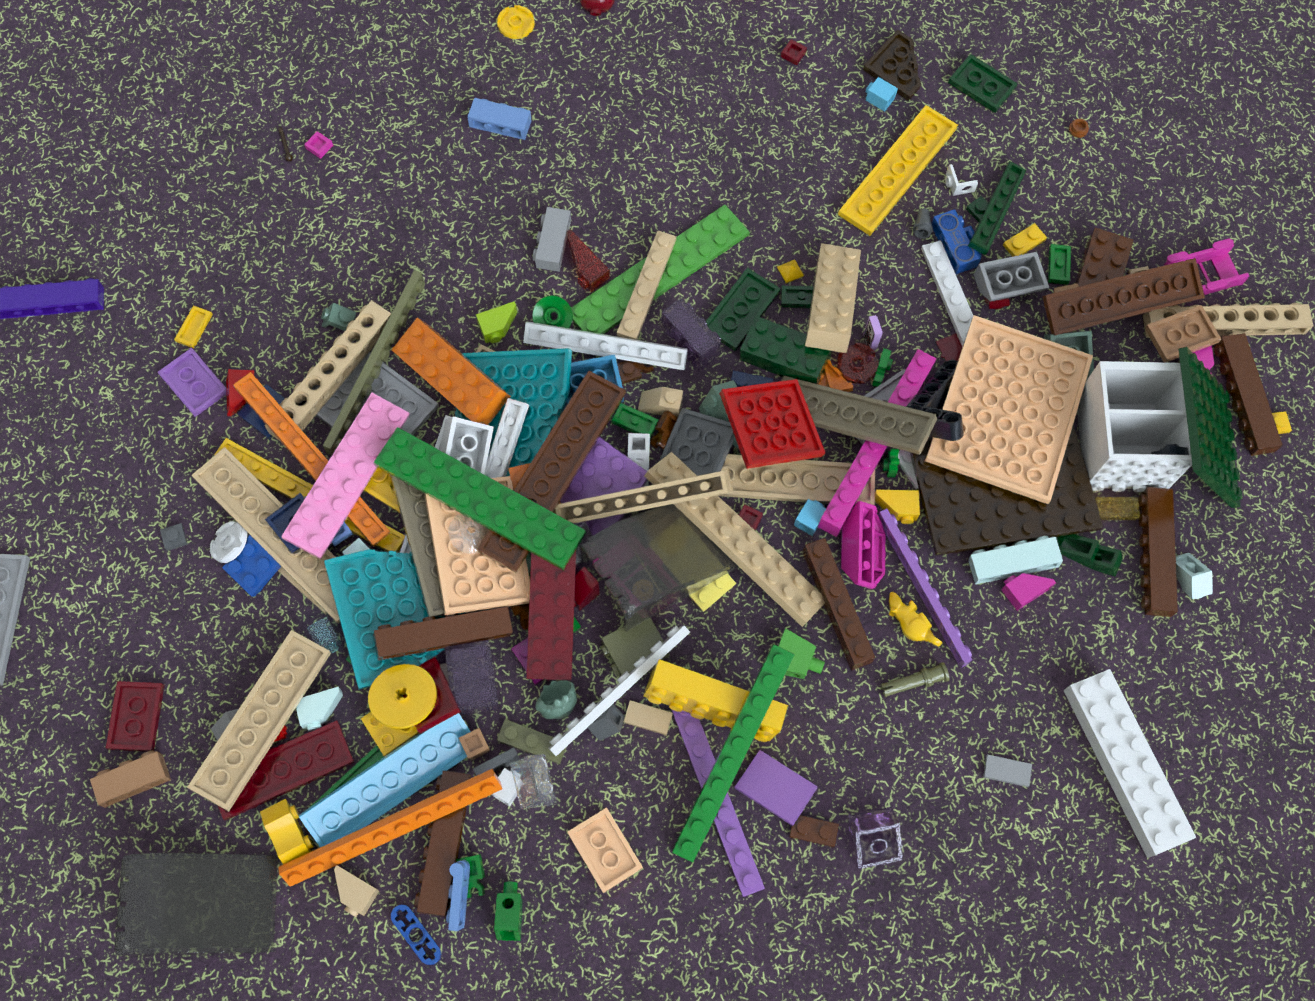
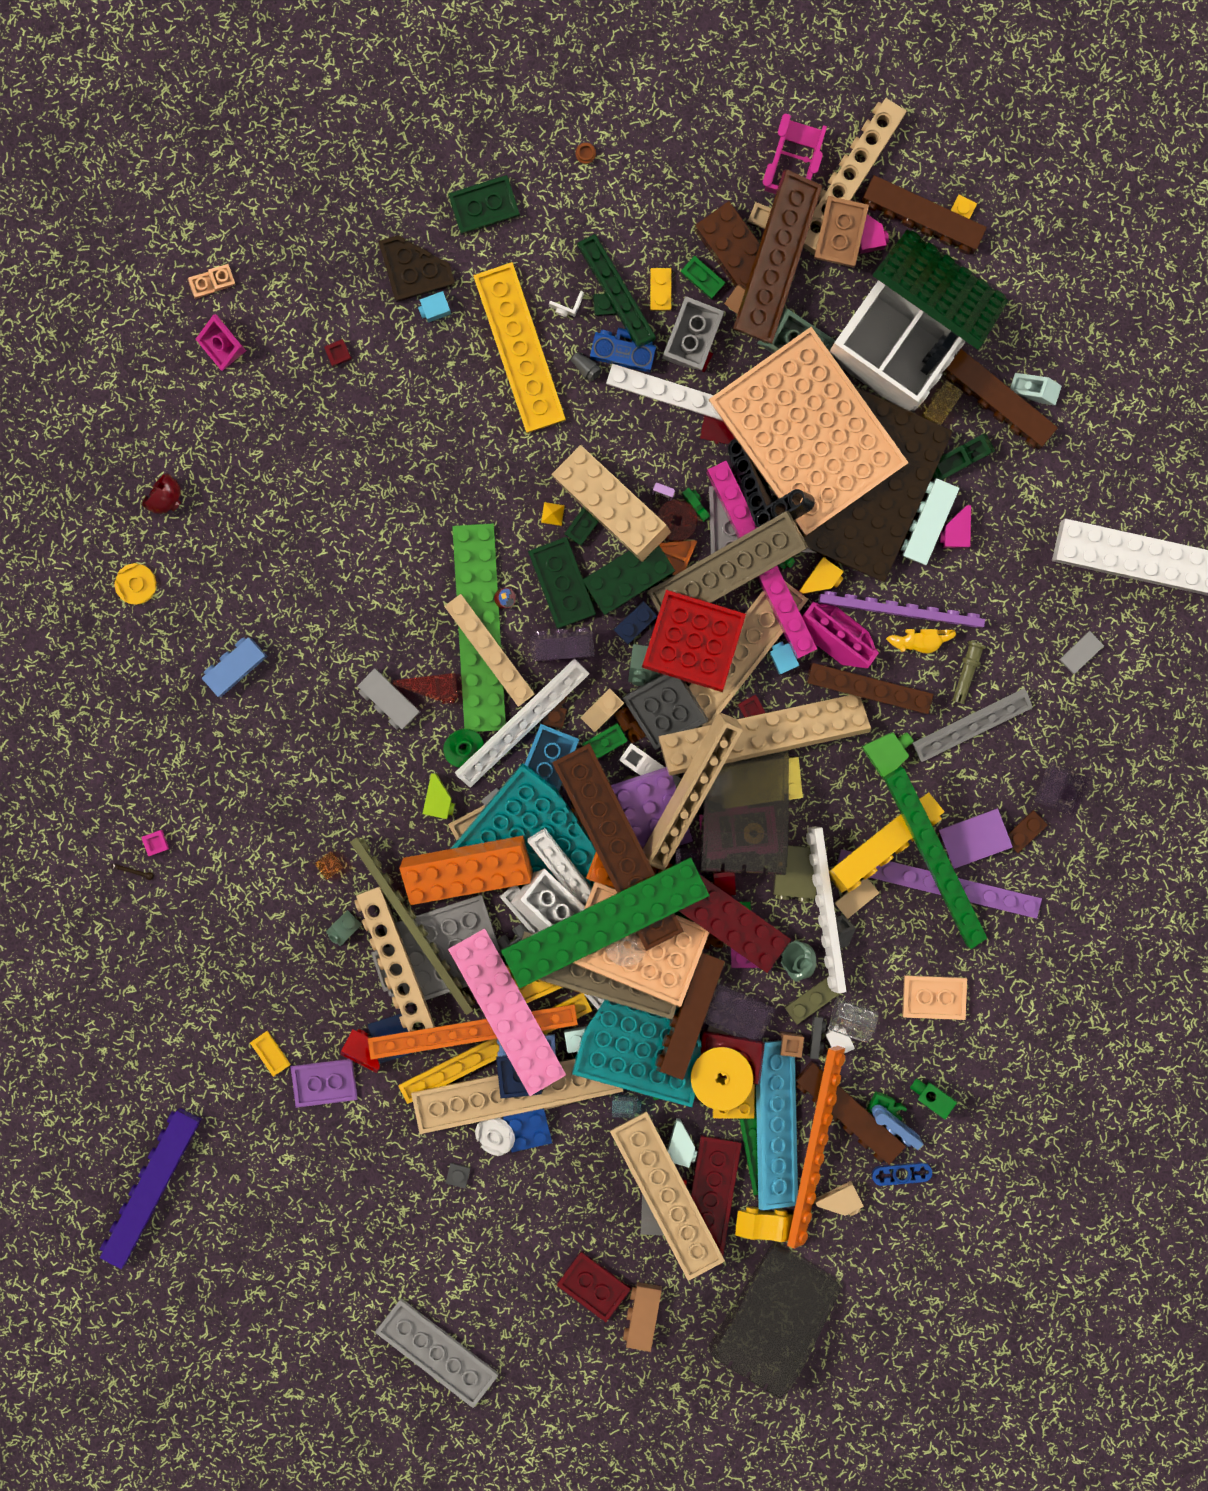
camera: 50 degrees left, 20 degrees up
(384, 276) = (329, 865): none -> clear orange plate
(697, 275) = (505, 598): none -> tile
(873, 715) = (972, 725): none -> light grey plate

